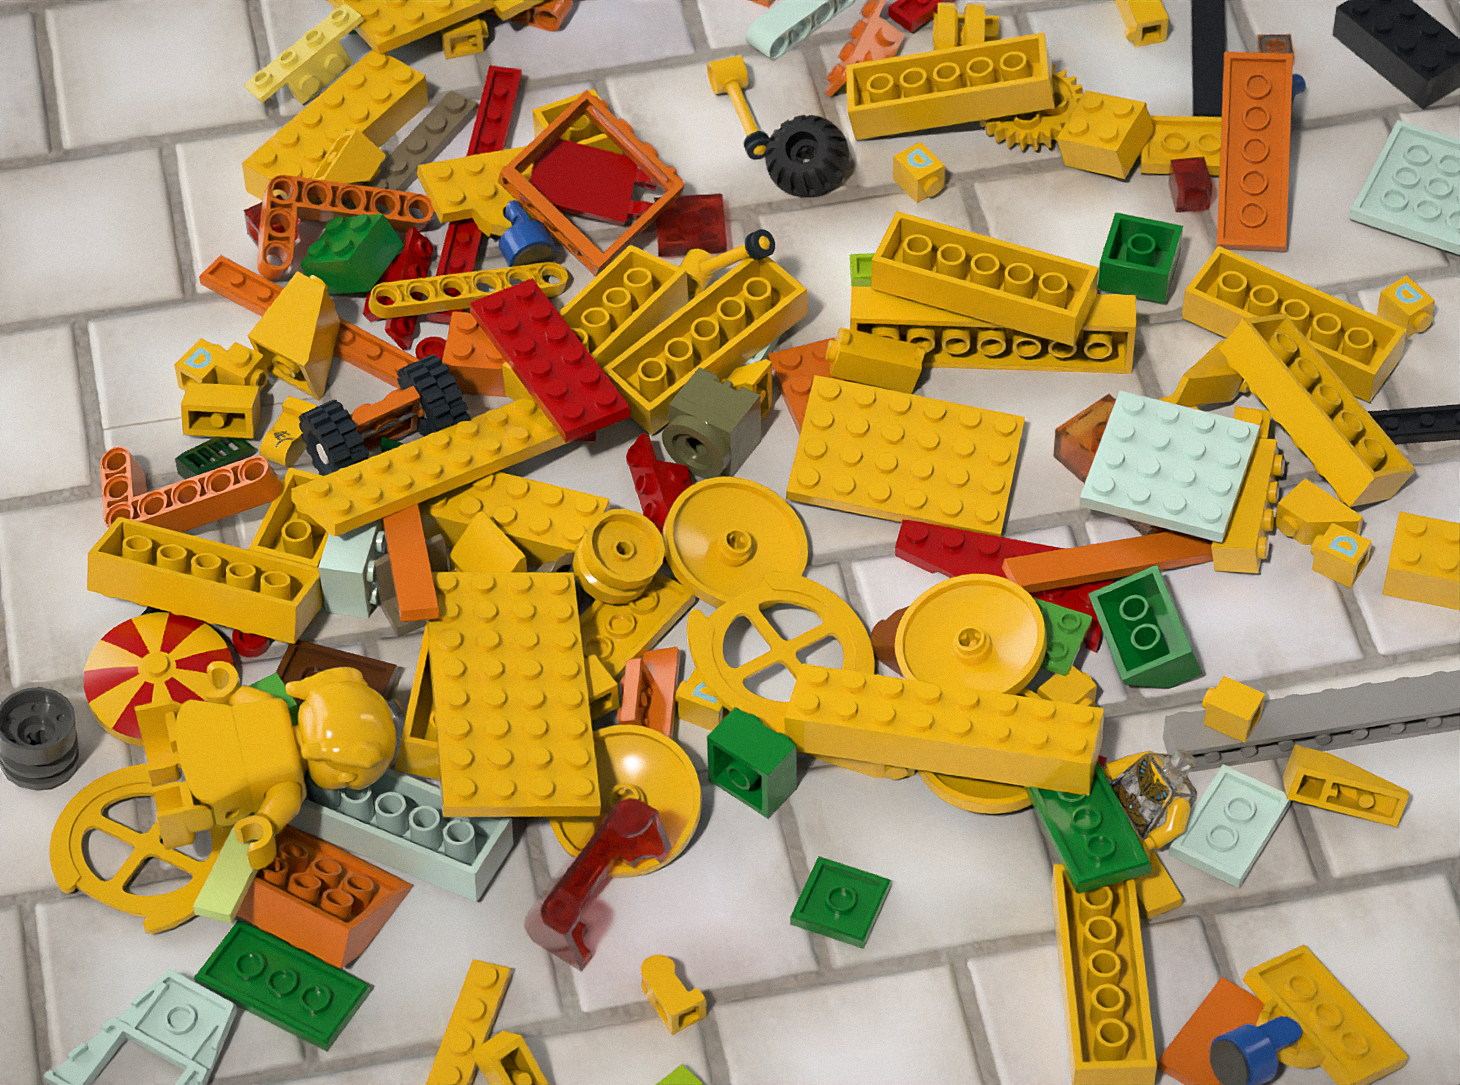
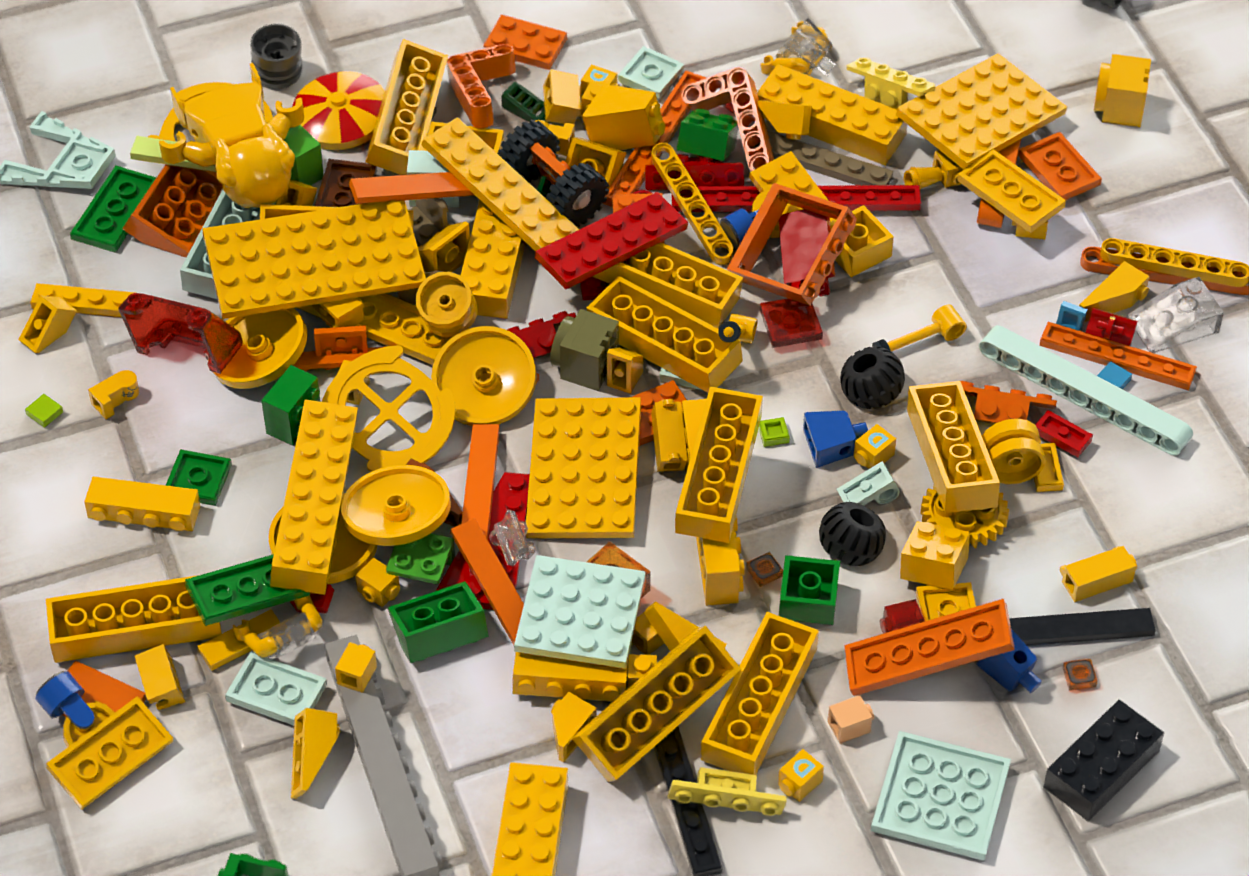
camera: 80 degrees right, 0 degrees up
(72, 452) = (531, 42): none -> orange plate
(193, 311) = (651, 72): none -> light aqua plate
(209, 140) = (803, 51): none -> clear torso
(358, 379) = (602, 158): none -> yellow slope
(470, 65) = (922, 176): none -> yellow cone
(884, 199) = (831, 435): none -> blue torso
(889, 965) = (142, 503): none -> yellow brick
(892, 567) = (481, 475): none -> orange tile
(983, 181) = (872, 484): none -> light aqua plate
(1026, 535) = (511, 537): none -> clear hips
(1053, 210) = (852, 534): none -> black wheel
(1199, 954) = (159, 677): none -> yellow hinge
(1328, 252) = (850, 719): none -> light nougat brick
(1340, 554) = (534, 742): yellow brick -> none
(1424, 375) = (727, 790): none -> light yellow bracket

